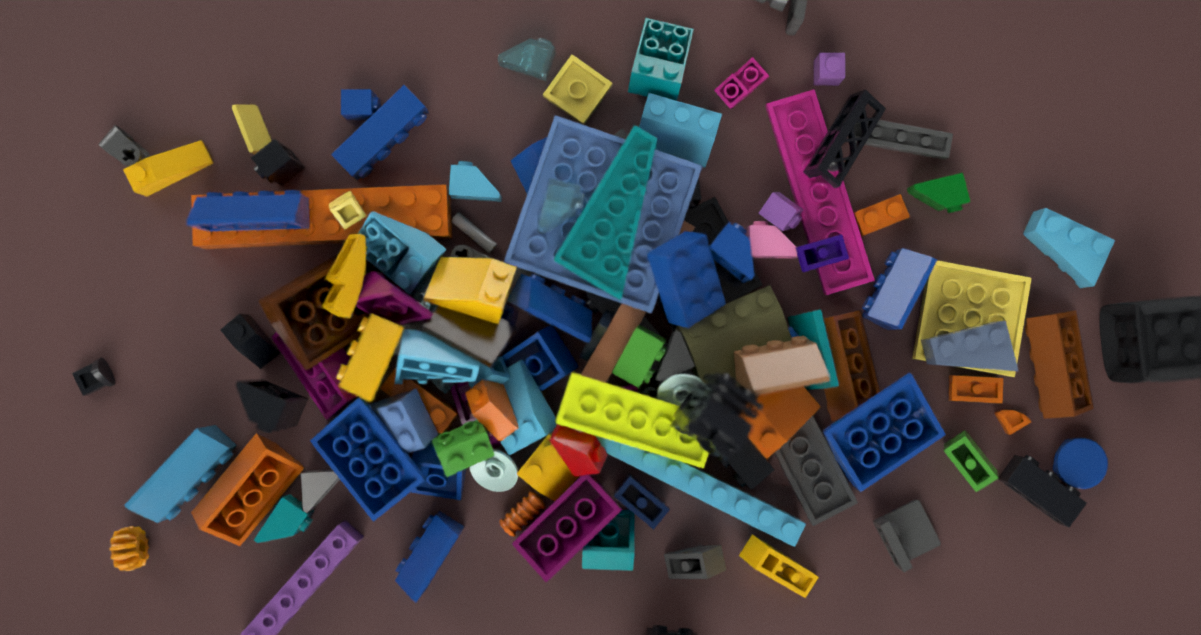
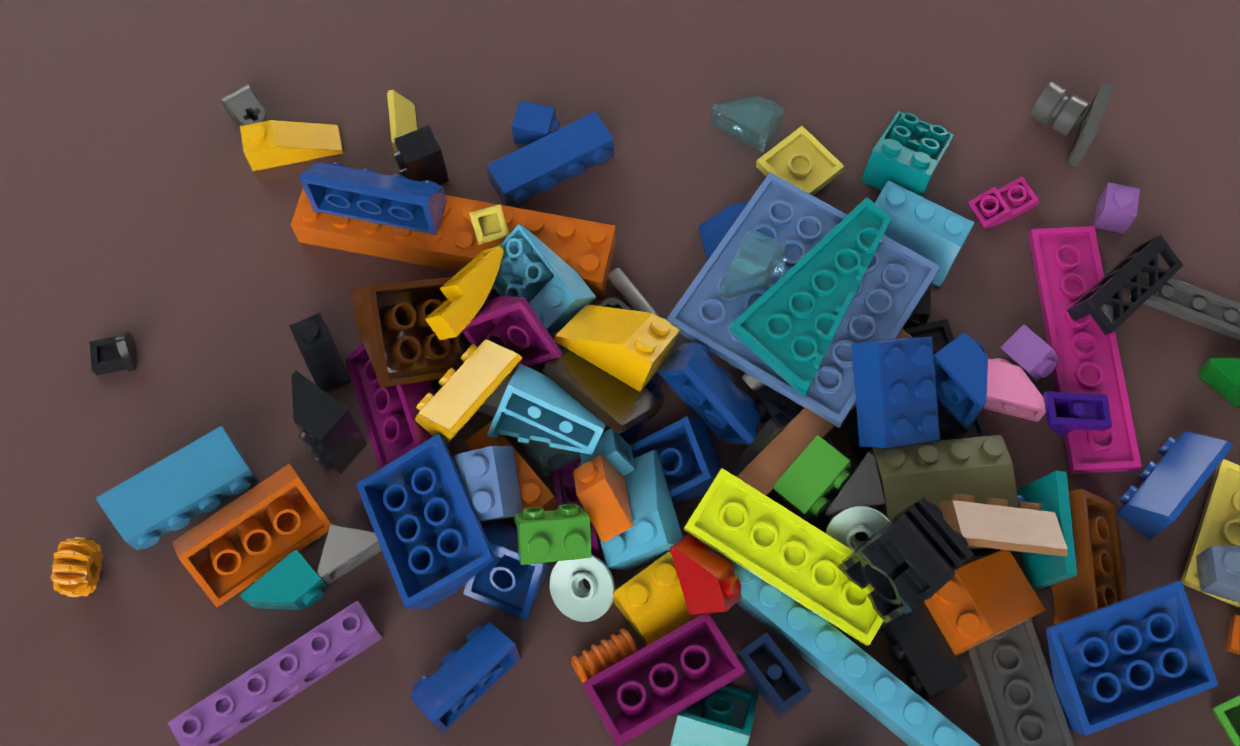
camera: 15 degrees right, 20 degrees down
(470, 184) = (645, 239): medium azure slope -> none
(881, 215) = (1161, 393): orange plate -> none

